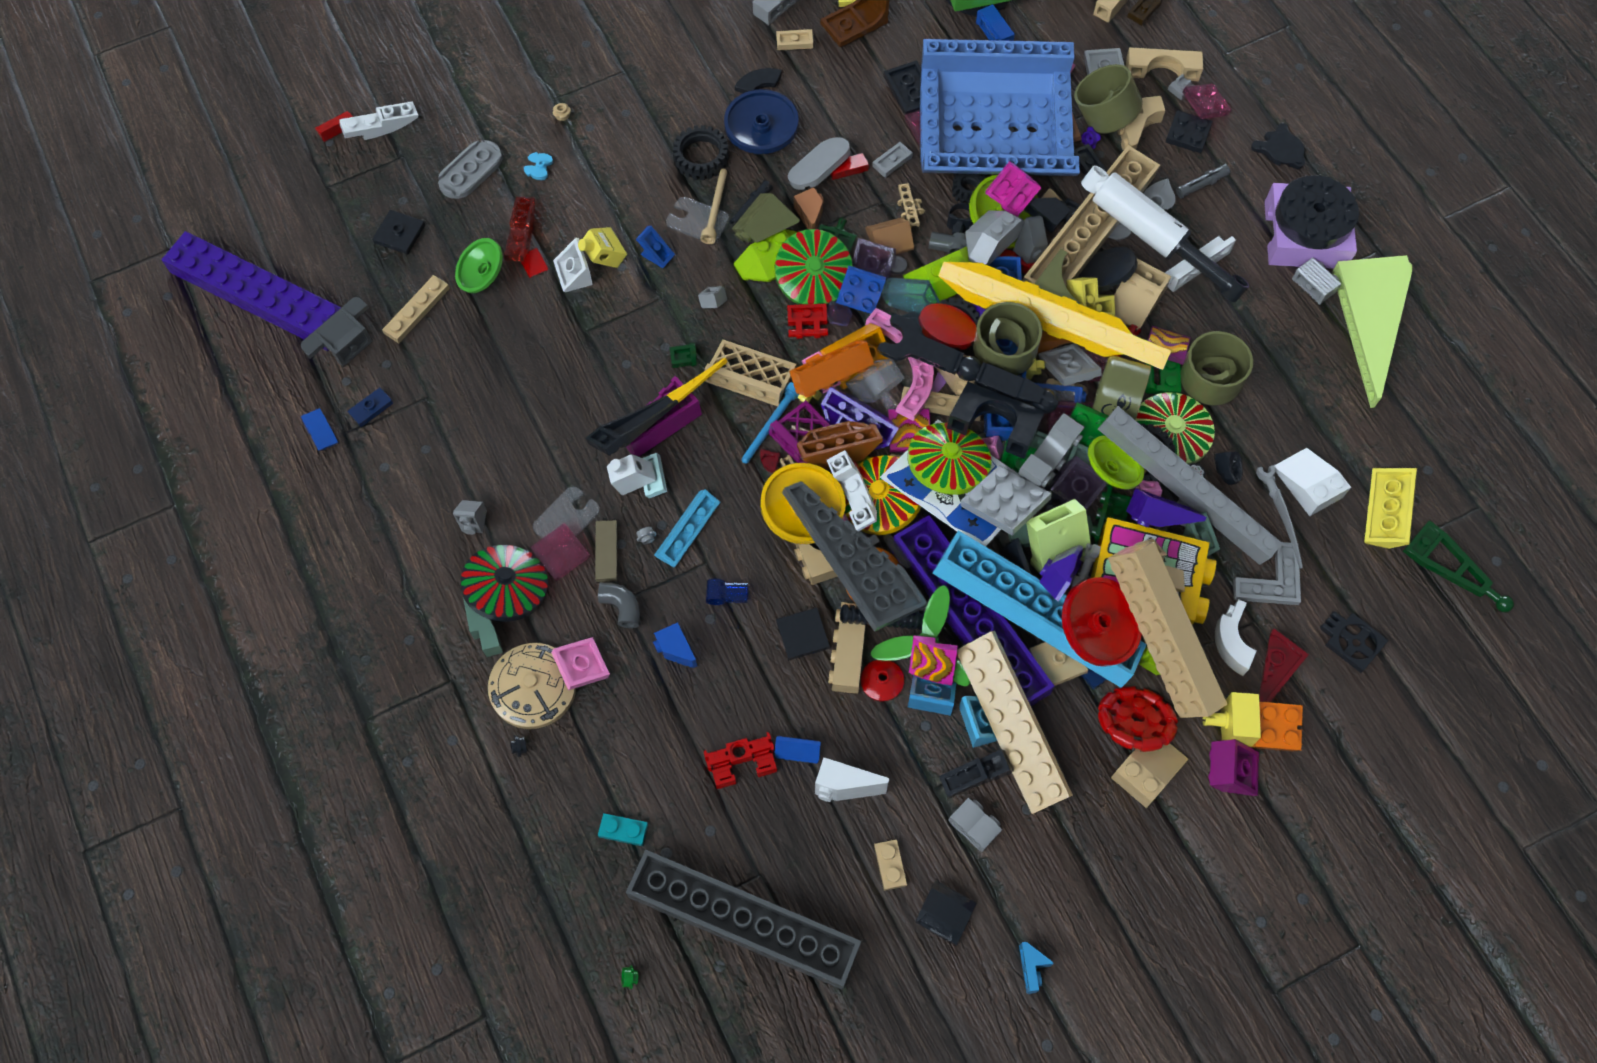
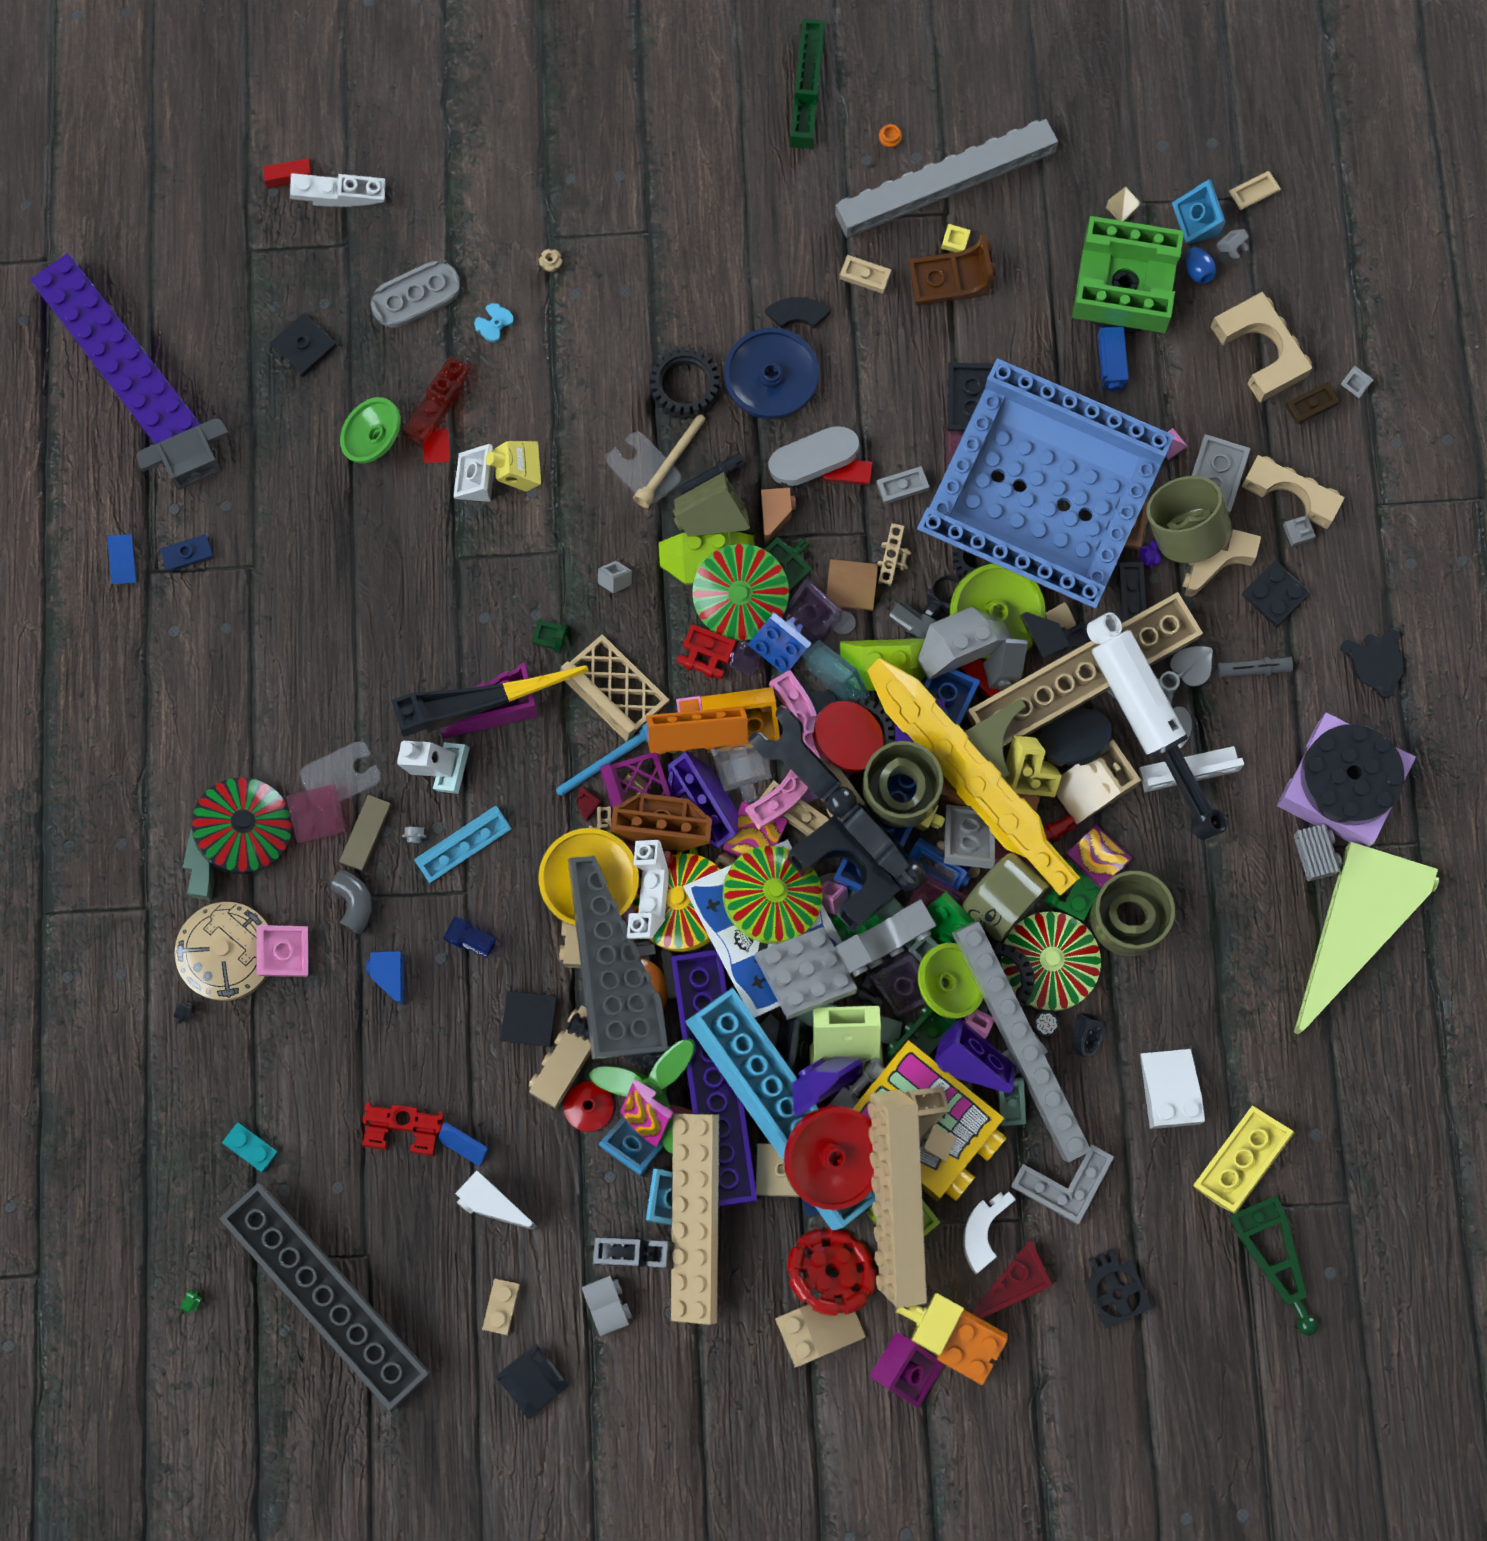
camera: 25 degrees right, 10 degrees up
(416, 309) = (283, 451): tan plate -> none
(470, 516) = (238, 733): light grey slope -> none
(654, 247) = (576, 487): blue slope -> none
(1013, 189) = (1010, 594): dark pink slope -> none
(1032, 959) = (592, 1468): dark azure slope -> none
(1206, 101) = (1317, 563): clear pink plate -> none
(1275, 493) = (1121, 1089): light grey sword -> none

